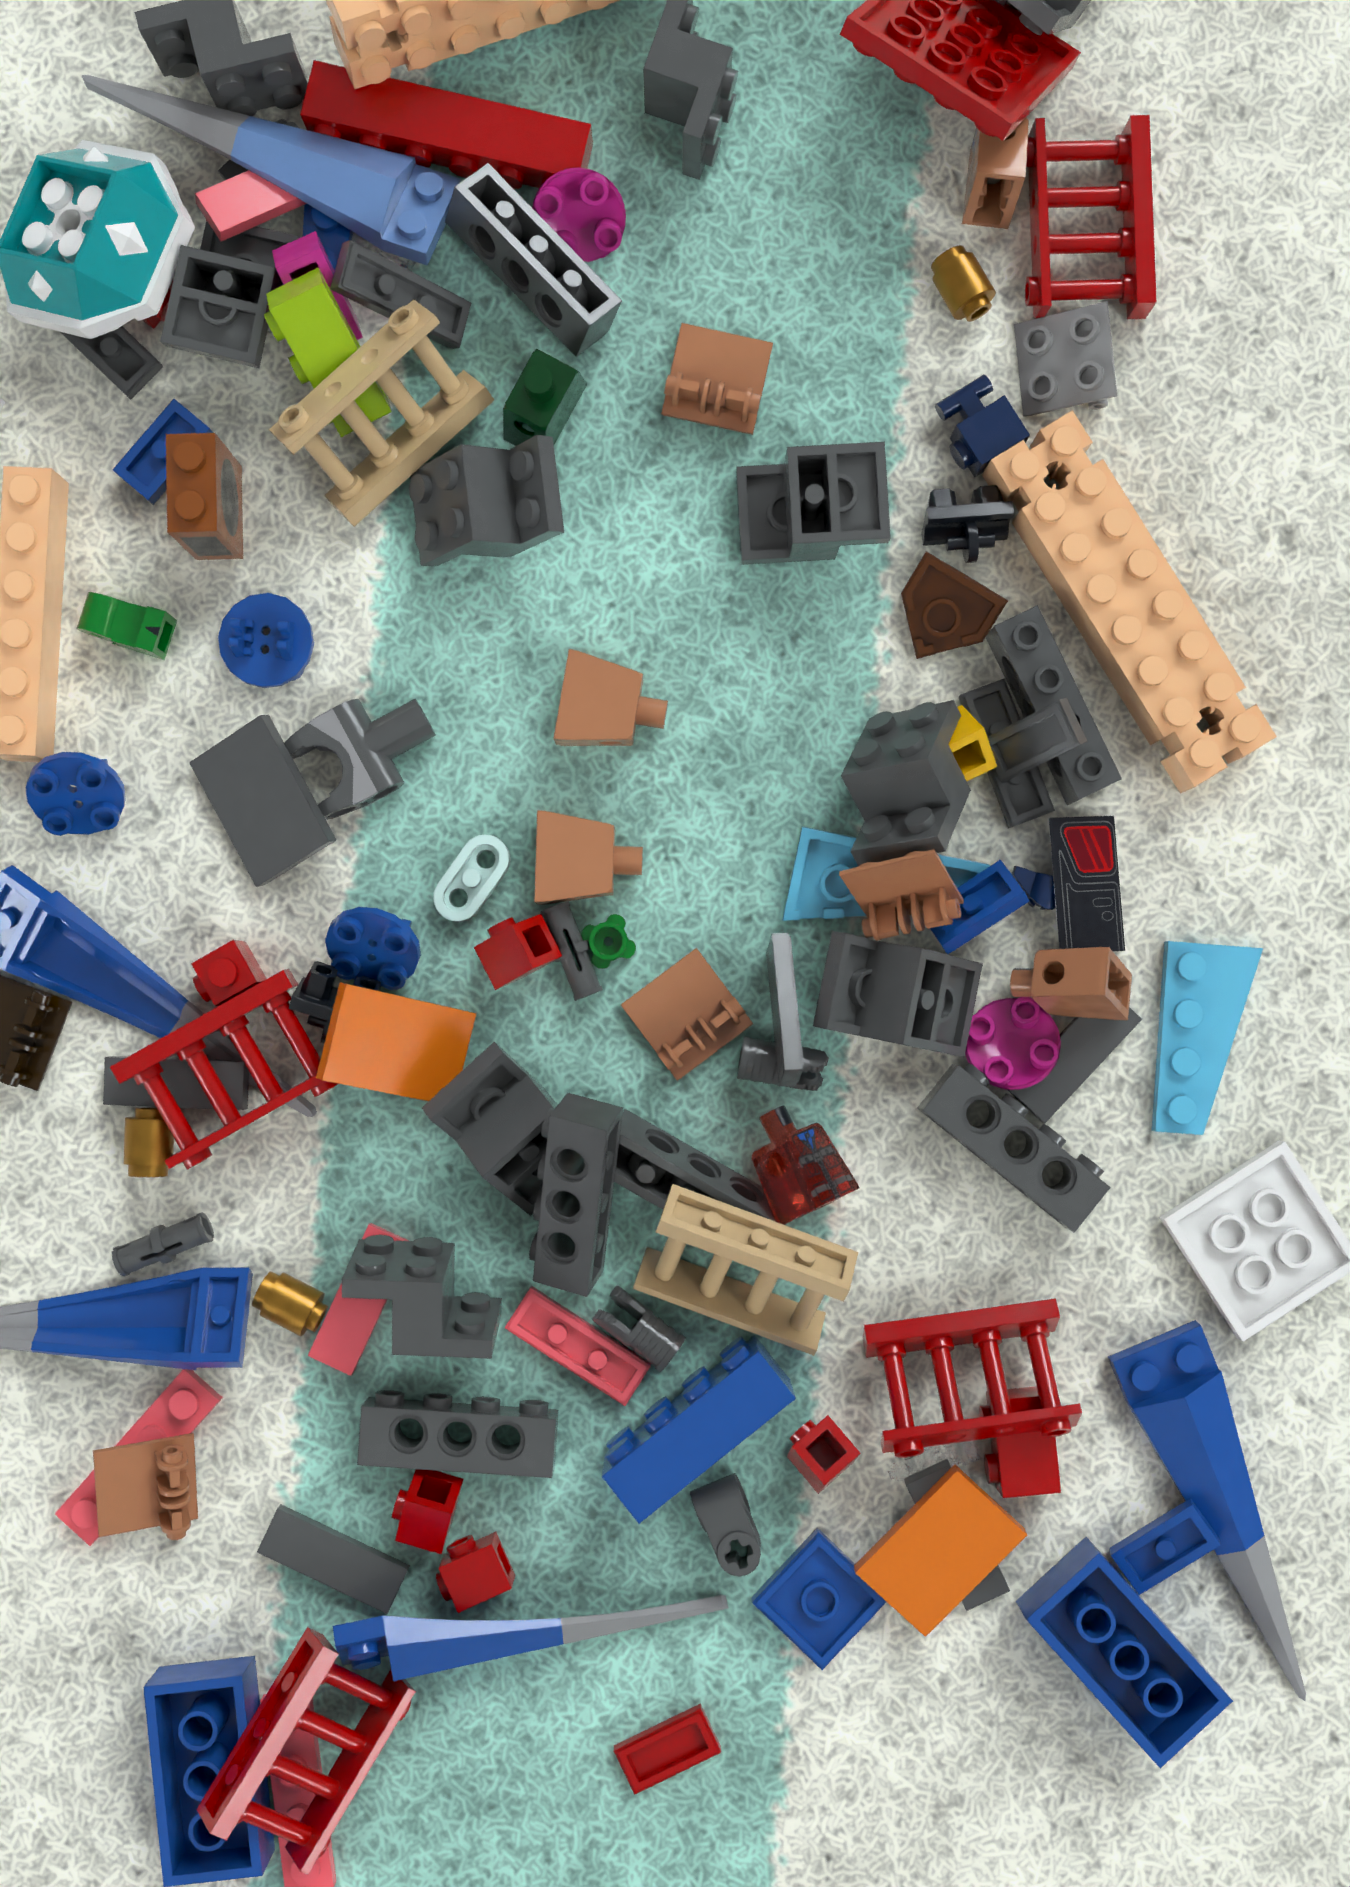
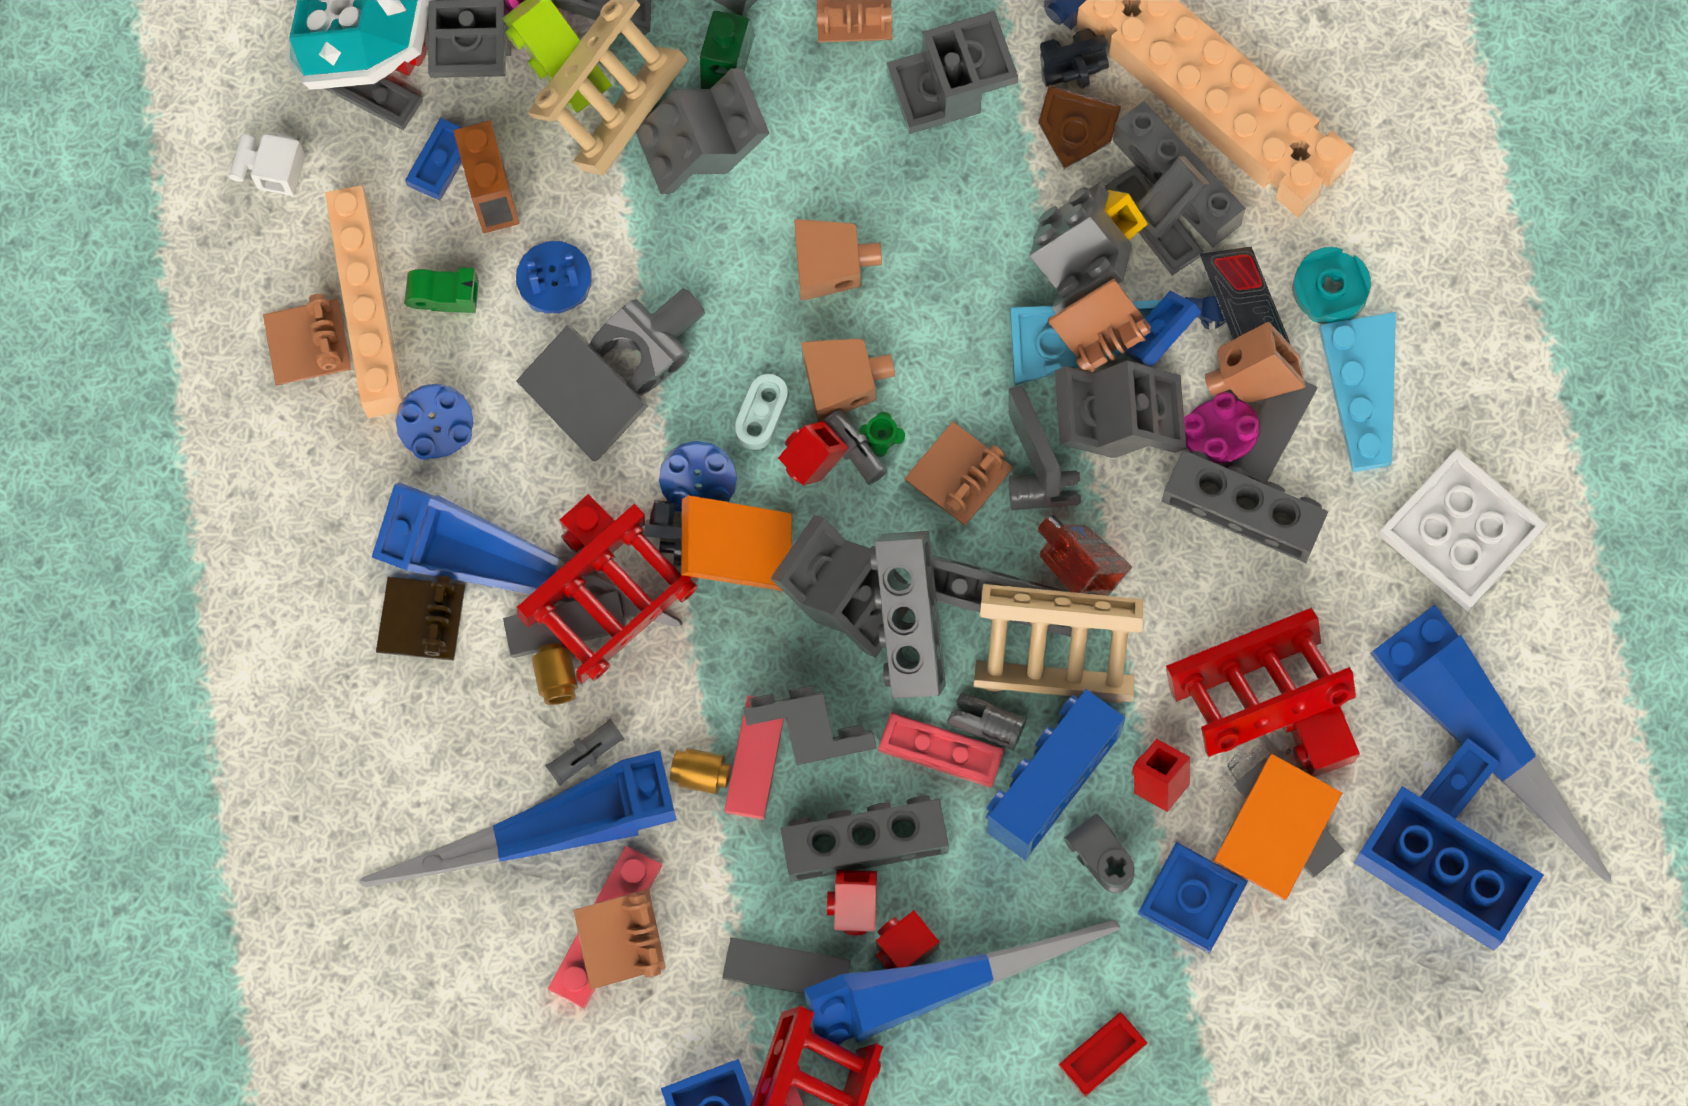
camera: 10 degrees left, 15 degrees down
(1213, 873) = (1340, 267): none -> teal plate

